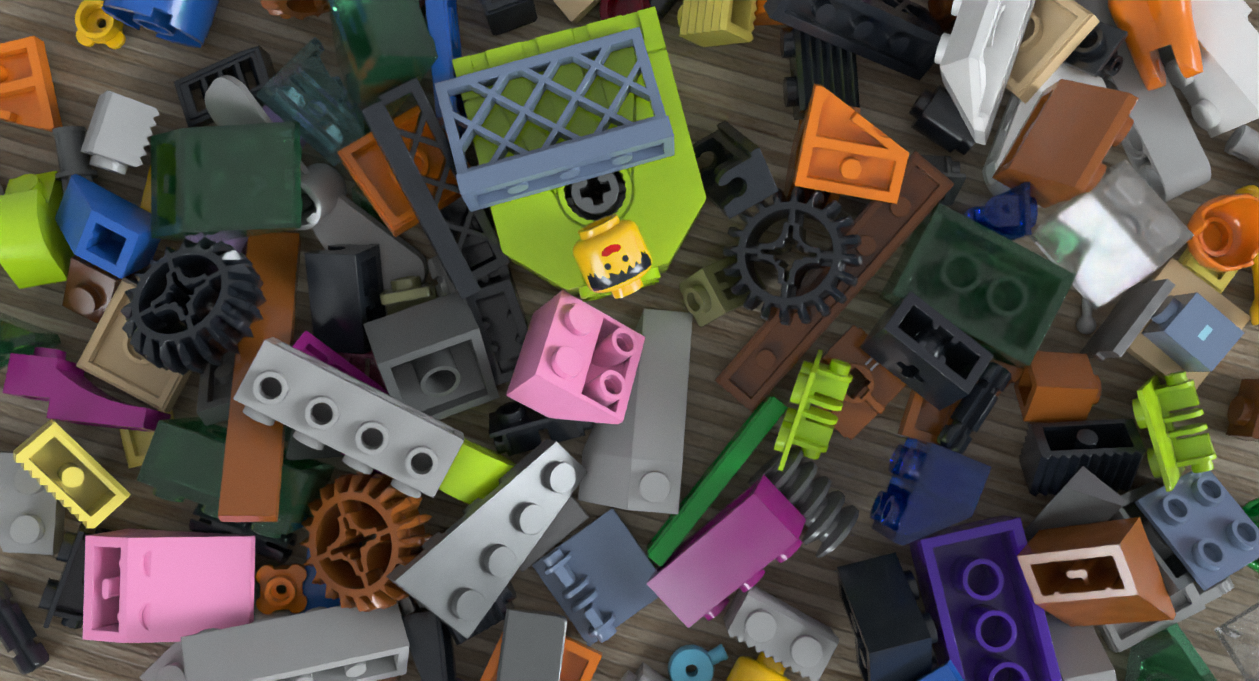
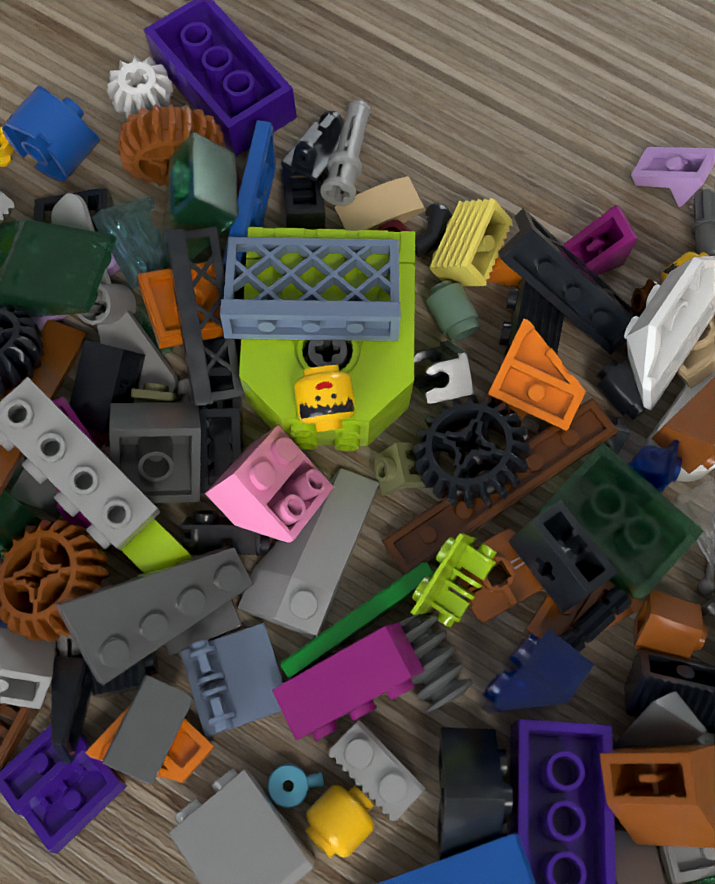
camera: 10 degrees right, 15 degrees down
(720, 80) = (453, 311): none -> sand green brick

